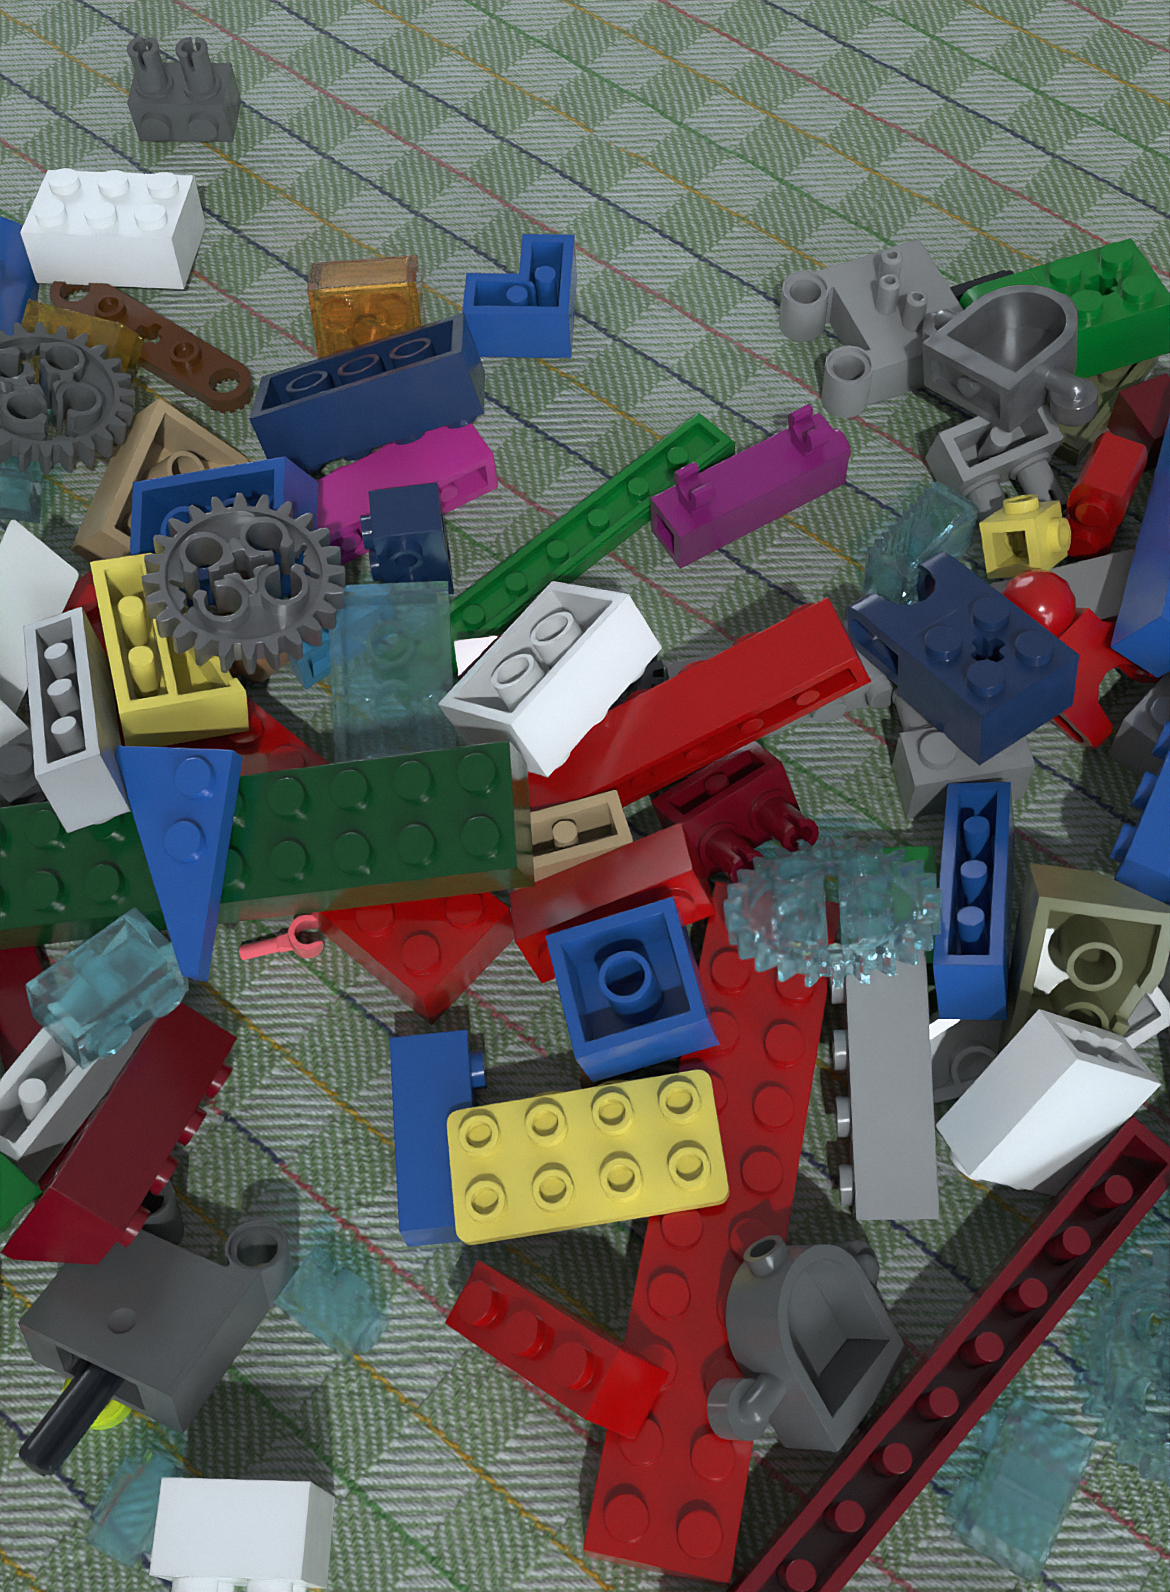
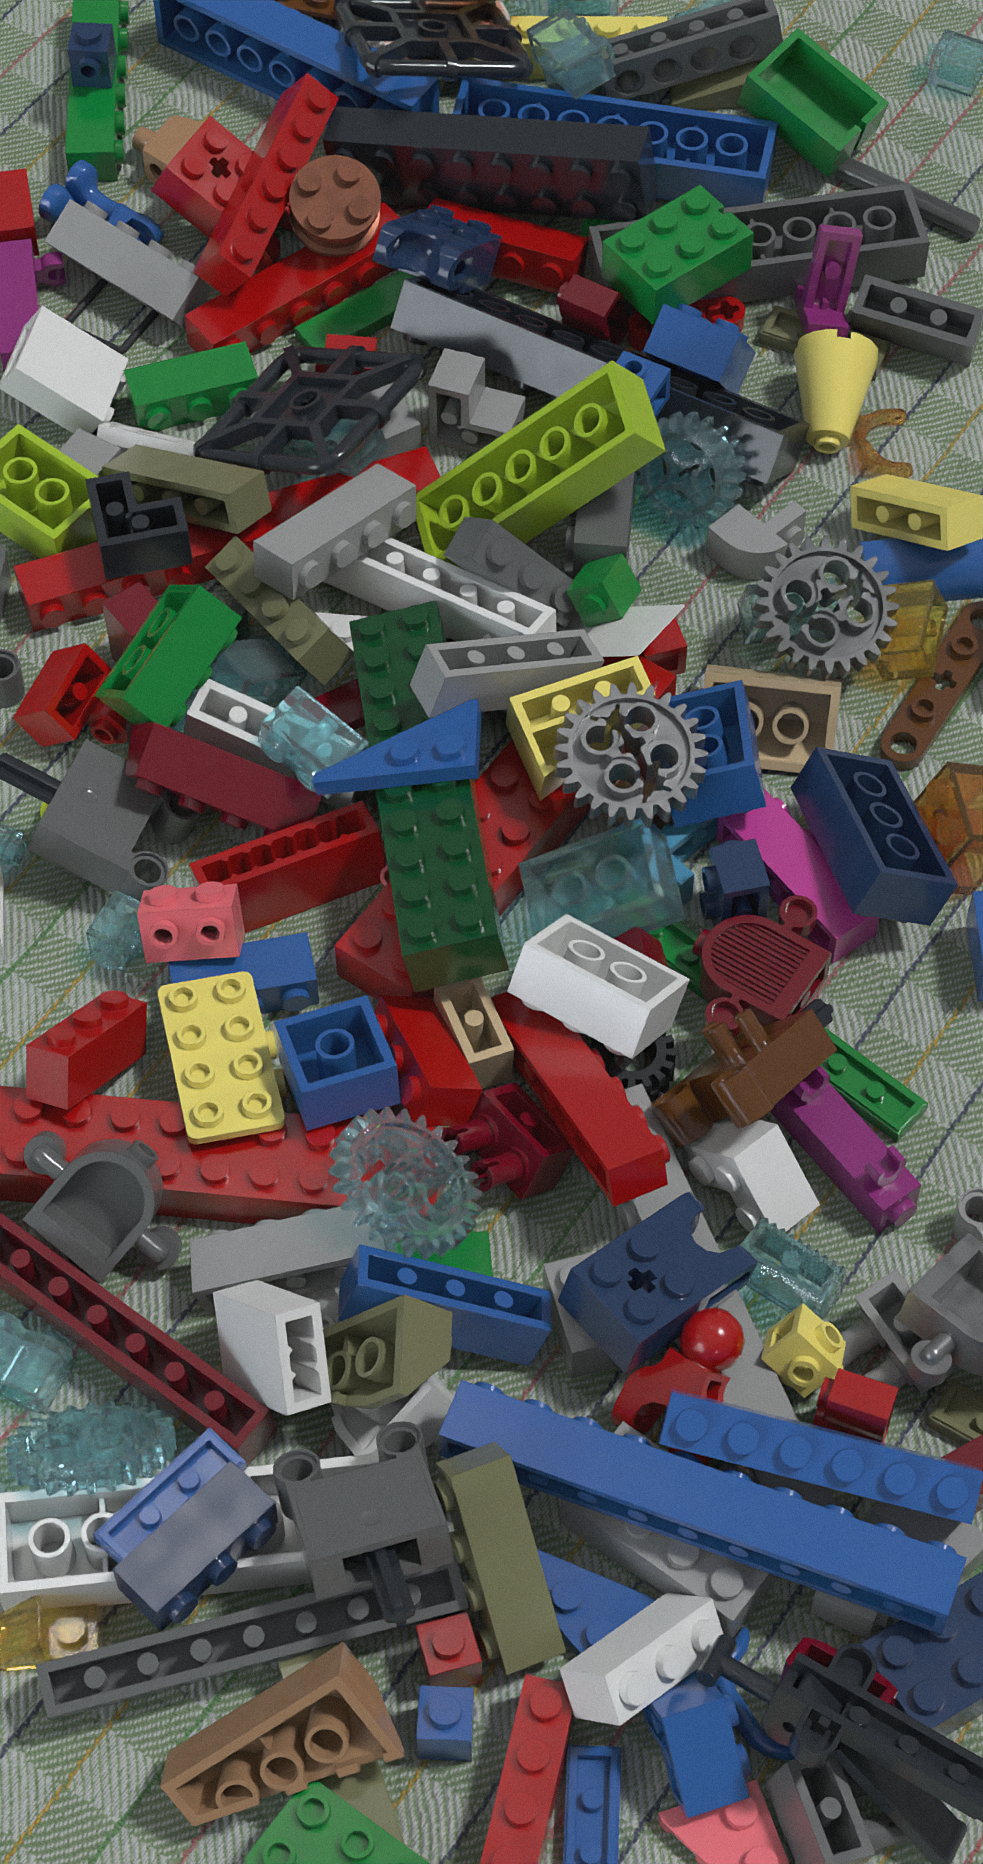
camera: 80 degrees right, 5 degrees down
(279, 1065) = (299, 865): none -> red brick
(364, 1184) = (191, 922): none -> coral brick
(526, 531) = (761, 964): none -> dark red piece
(679, 537) = (745, 1071): none -> reddish brown piece
(781, 565) = (755, 1170): none -> white brick

